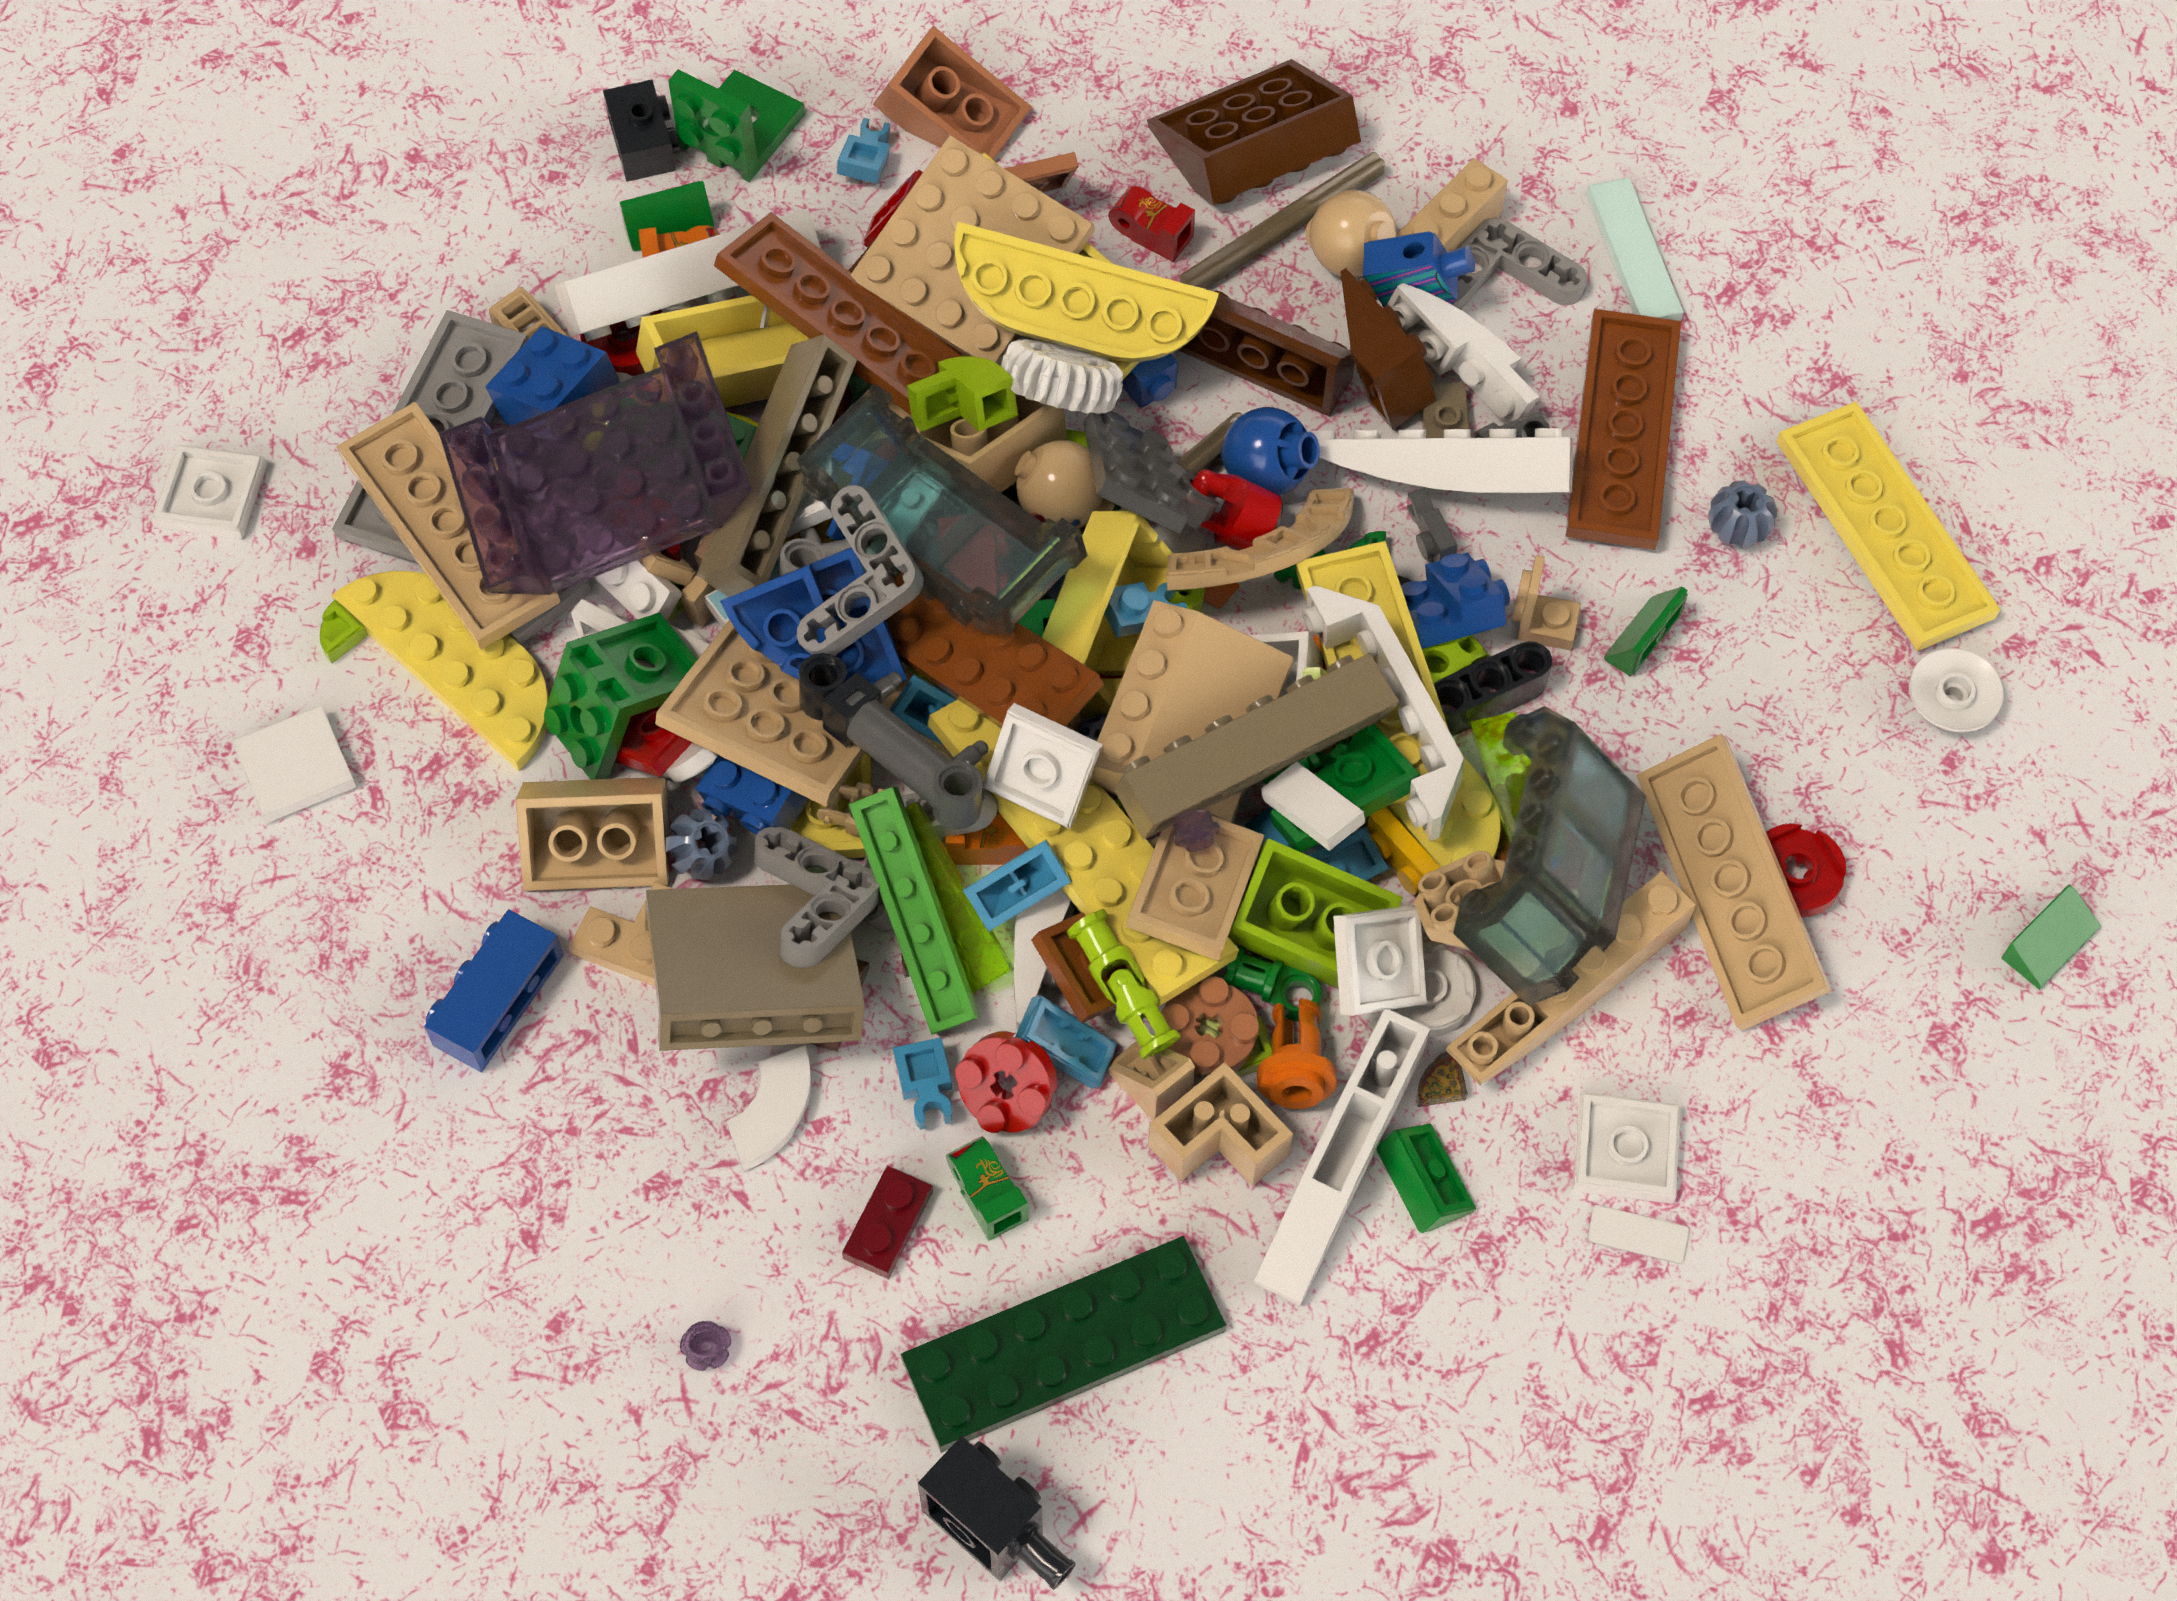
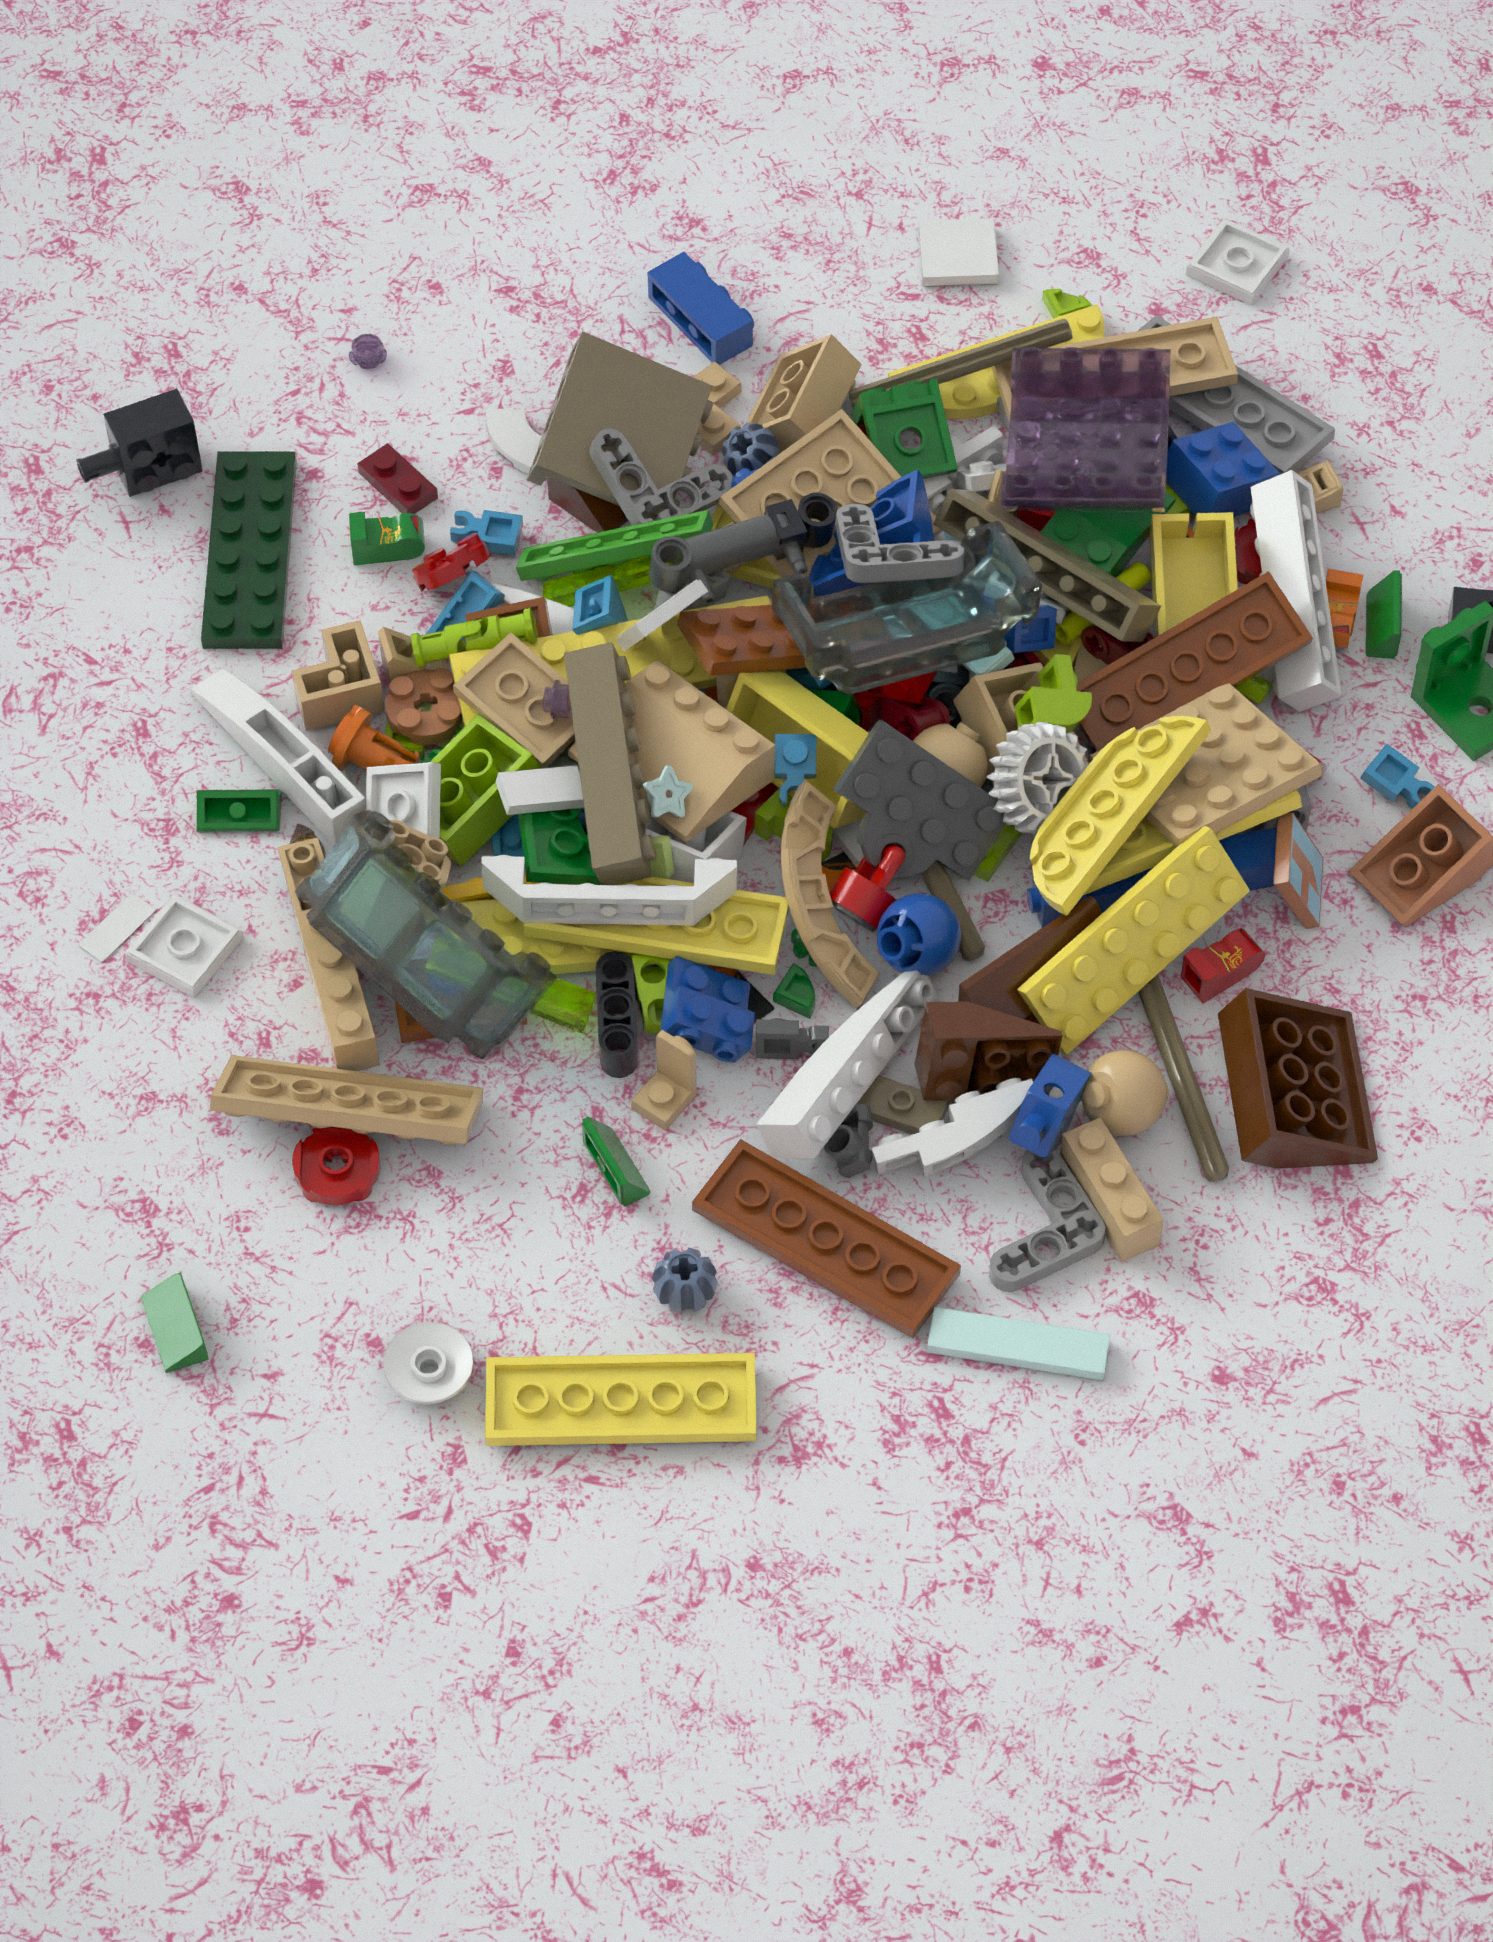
camera: 115 degrees right, 5 degrees down
(500, 663) = (976, 358): none -> dark tan axle
(1210, 267) = (1134, 939): none -> light yellow plate
(1266, 675) = (657, 798): none -> light aqua plate

